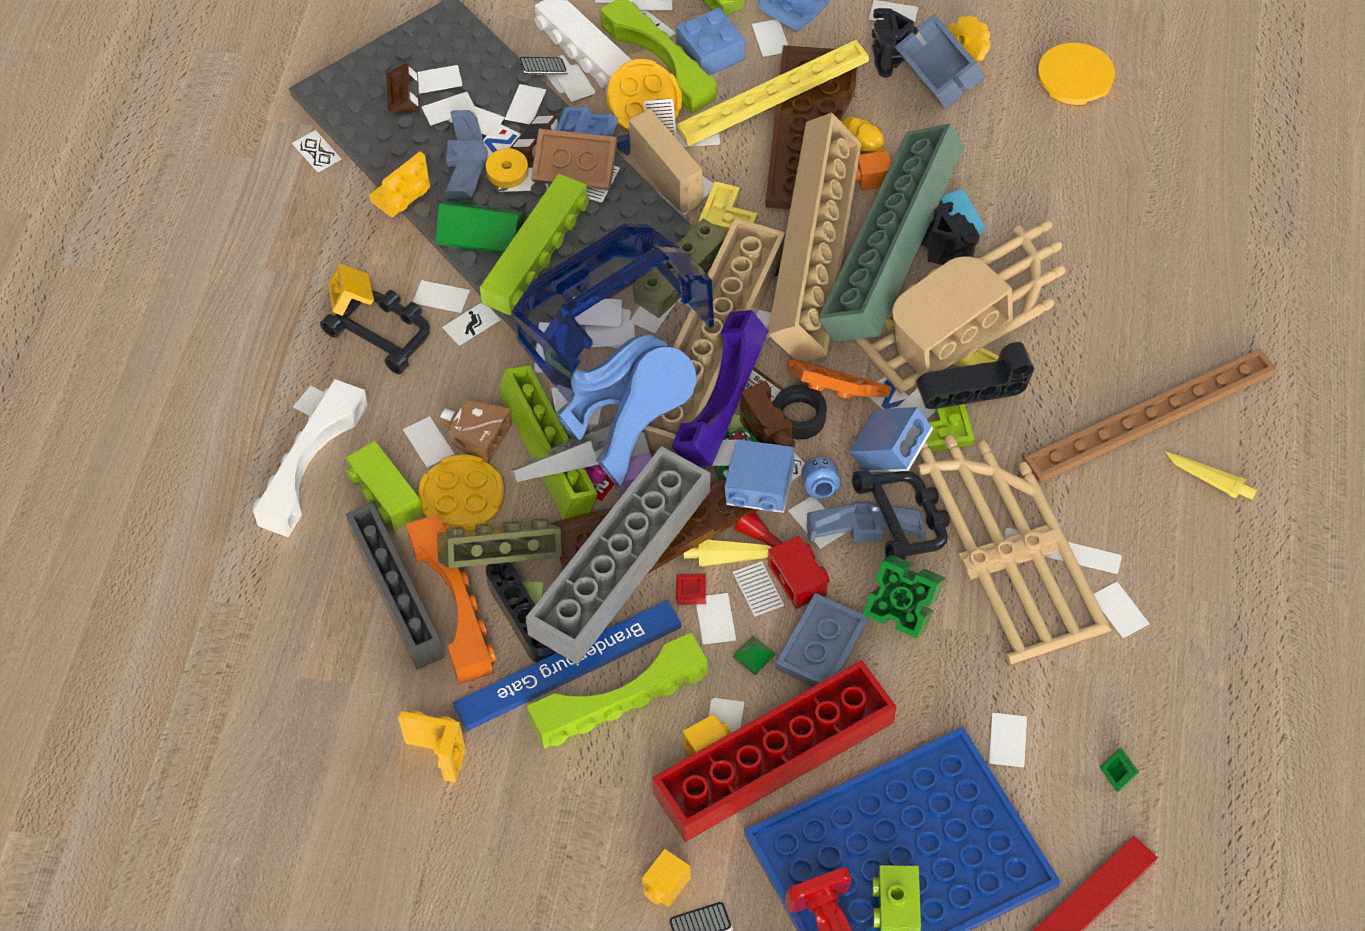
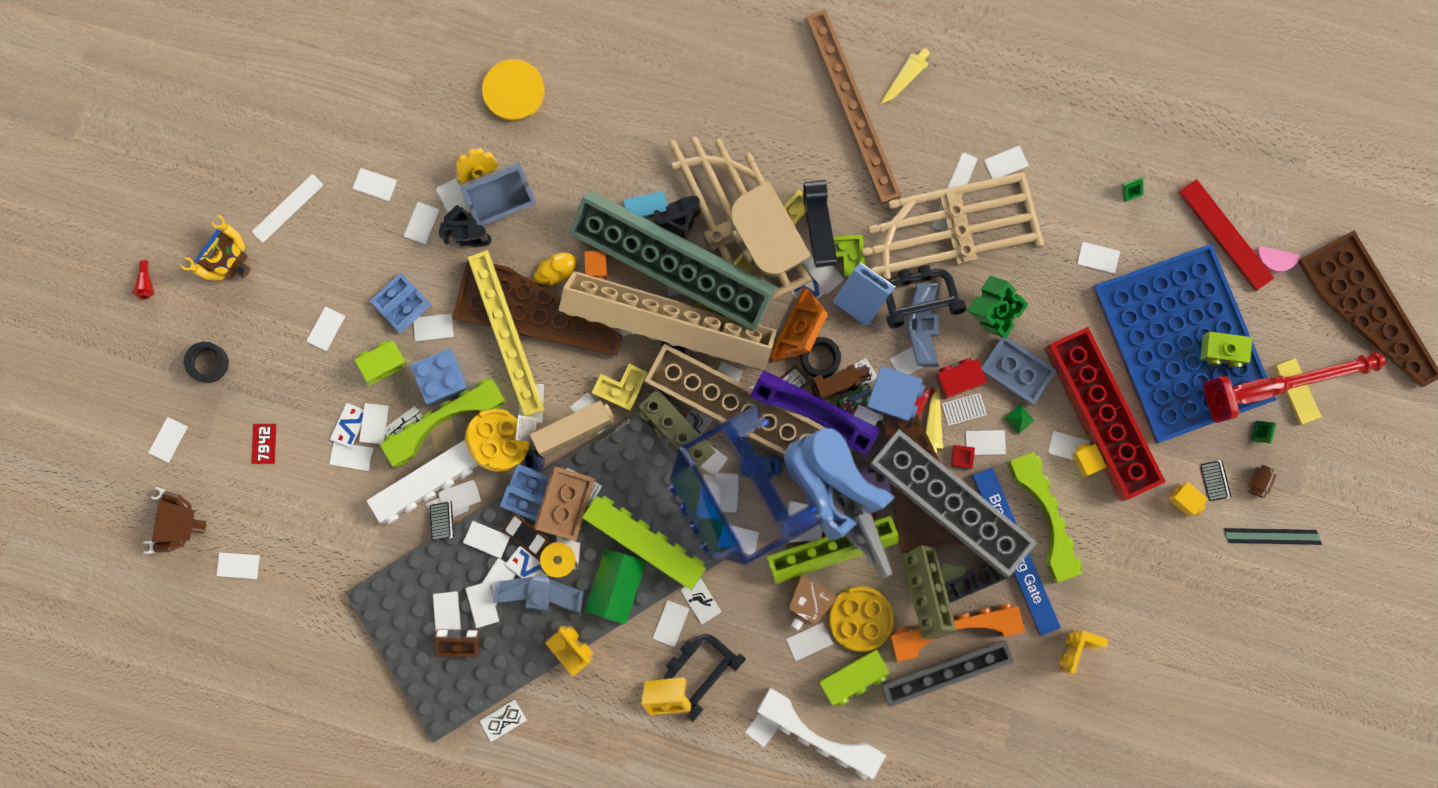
camera: 85 degrees left, 25 degrees up
(820, 477) = (883, 350): medium blue head -> none

